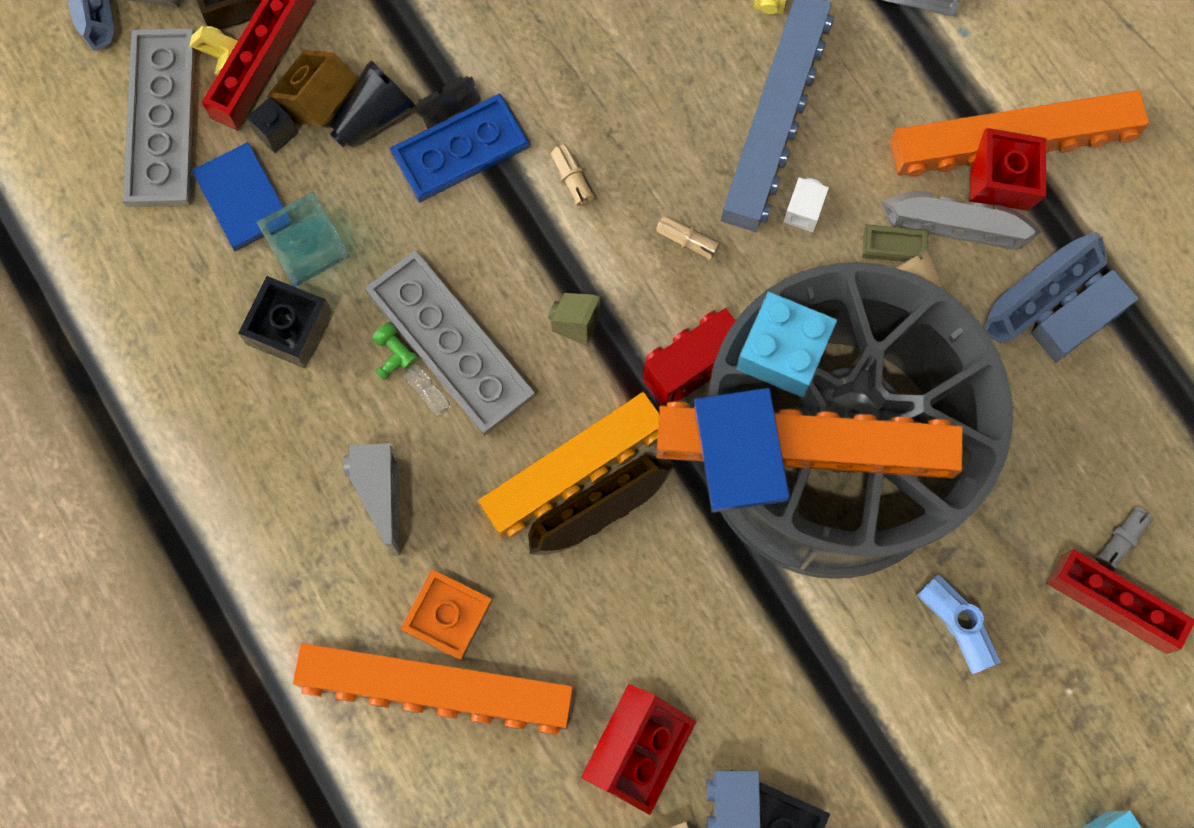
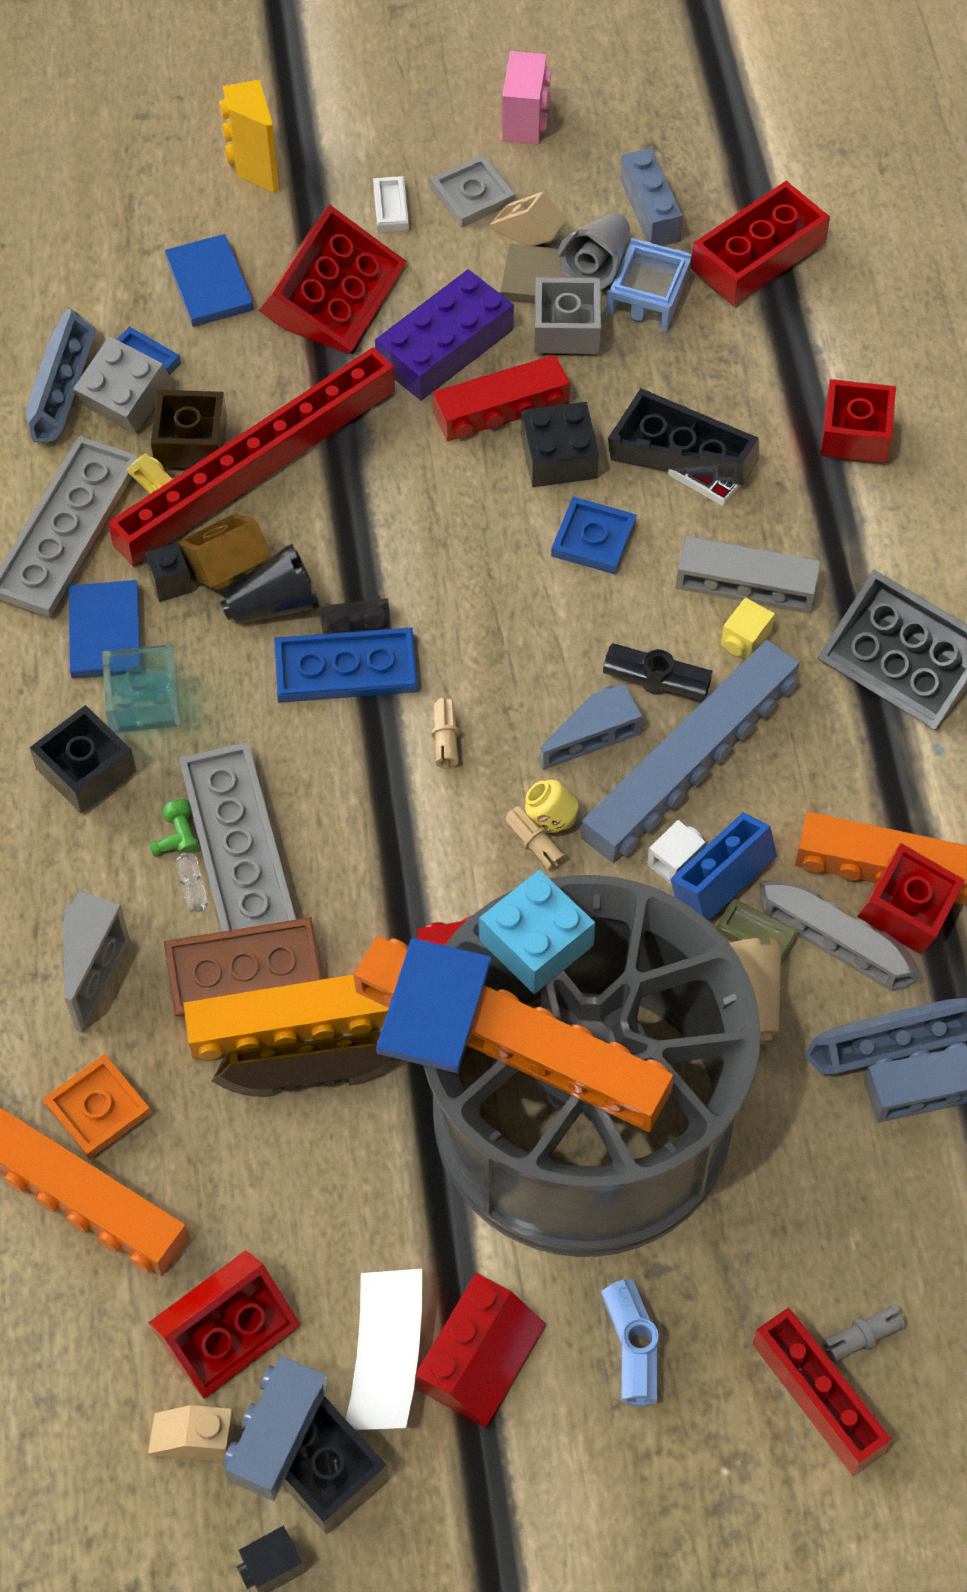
camera: 25 degrees right, 15 degrees down
(505, 444) = (241, 961): none -> dark orange tile
(575, 316) = (378, 869): olive slope -> none
(690, 205) = (551, 806): none -> light yellow head
(696, 112) = (598, 723): none -> sand blue slope
(737, 51) = (639, 668): none -> black piece
(776, 715) = (386, 1349): none -> white sticker
(846, 682) = (479, 1351): none -> red slope
(851, 202) = (725, 866): none -> blue brick

